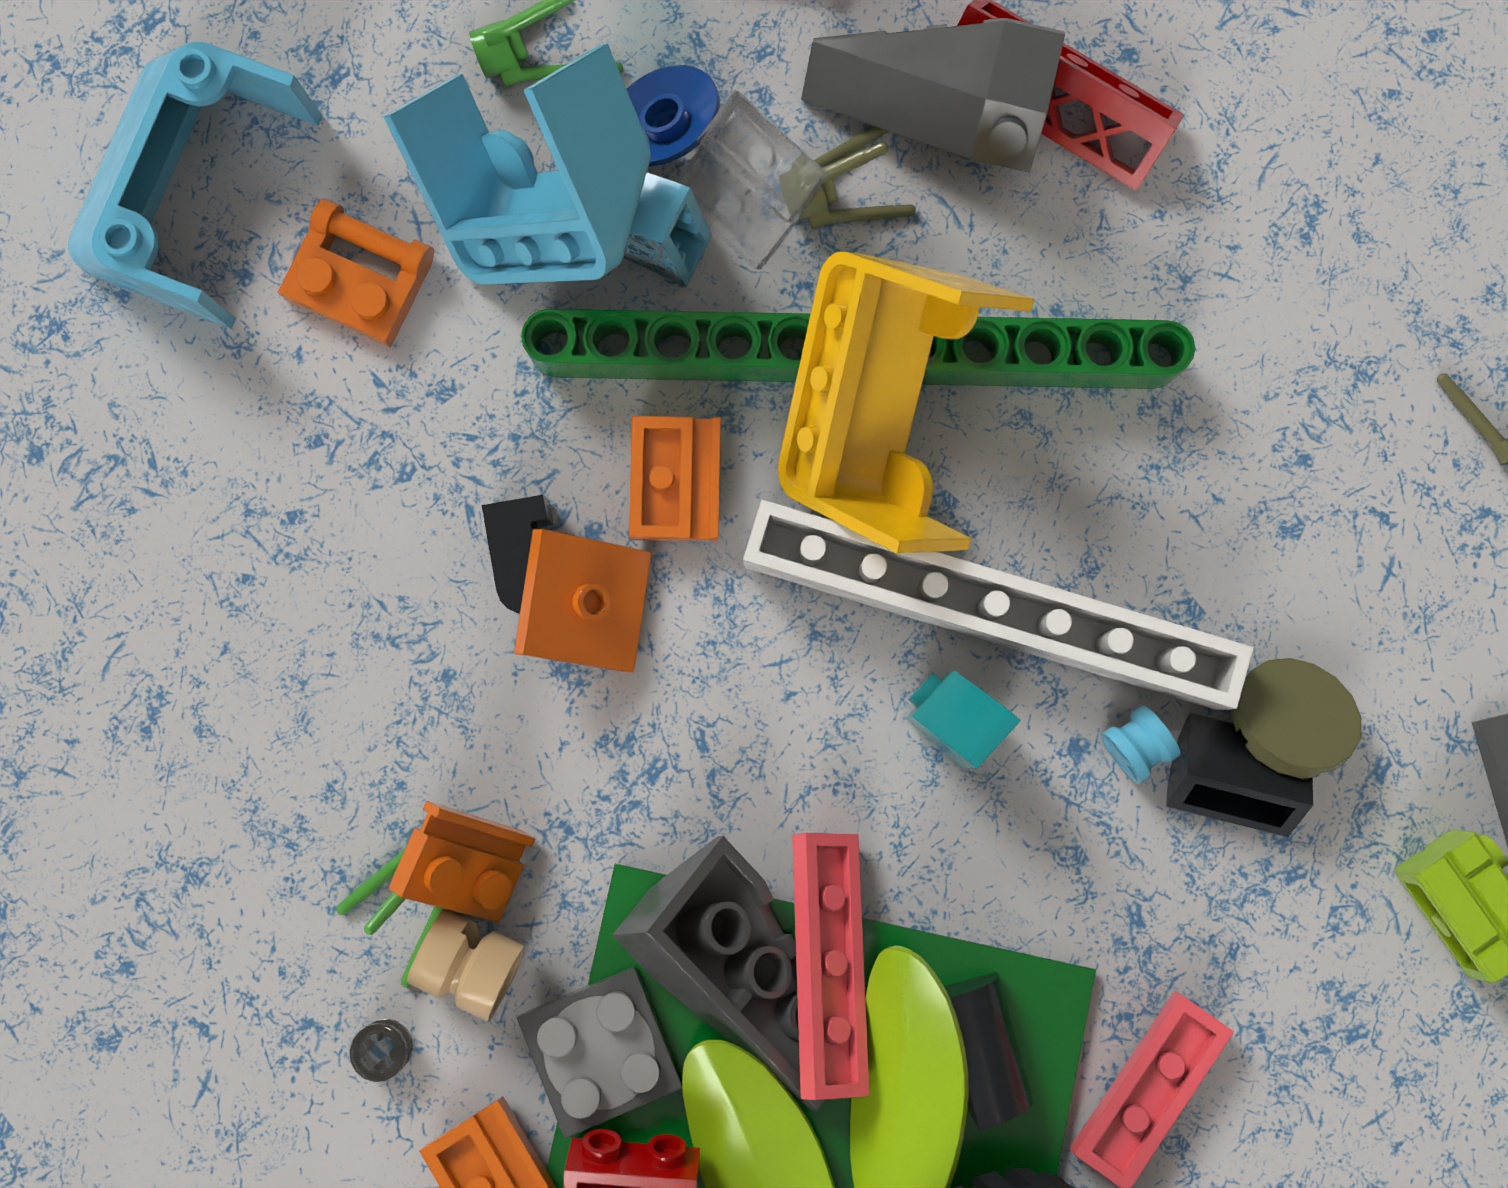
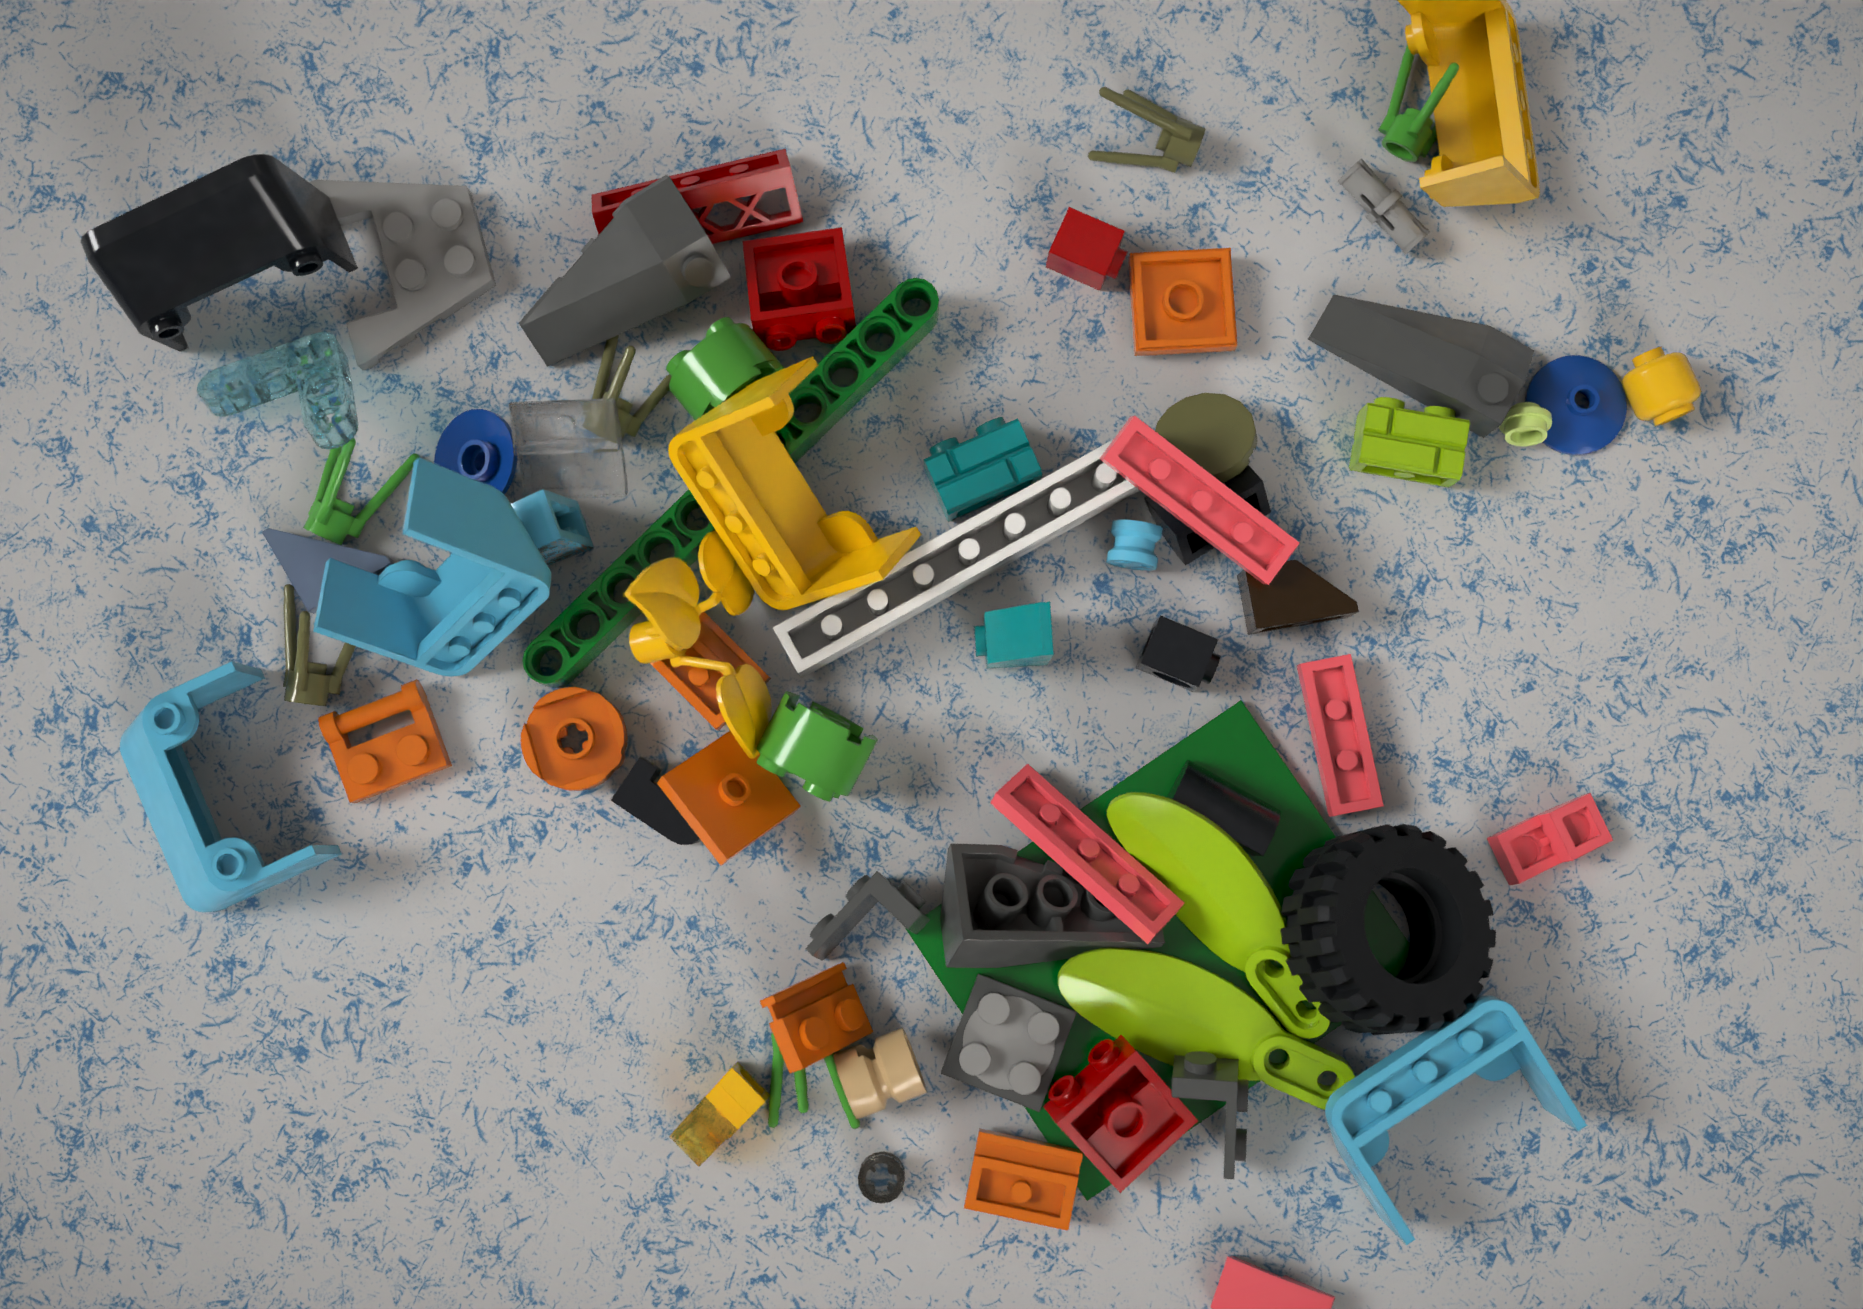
camera: 50 degrees left, 0 degrees up
(305, 857) = (719, 1114): none -> leg
(345, 158) = (306, 680): none -> olive plant
(445, 56) = (306, 560): none -> sand blue tile
(499, 392) = (548, 724): none -> orange plate
(630, 837) = (900, 901): none -> dark grey bracket
(692, 382) = (669, 599): none -> yellow plant
(694, 636) = (815, 747): none -> bright green brick
(943, 233) = (719, 366): none -> bright green brick
(1076, 241) = (799, 288): none -> red plate
(1077, 546) = (981, 468): none -> teal brick
(1083, 877) = (1179, 654): none -> black brick
(1230, 925) = (1291, 600): none -> dark brown slope
(1242, 766) = (1199, 500): none -> coral plate
(1358, 452) = (1086, 249): none -> red brick
(1396, 580) = (1182, 301): none -> orange plate

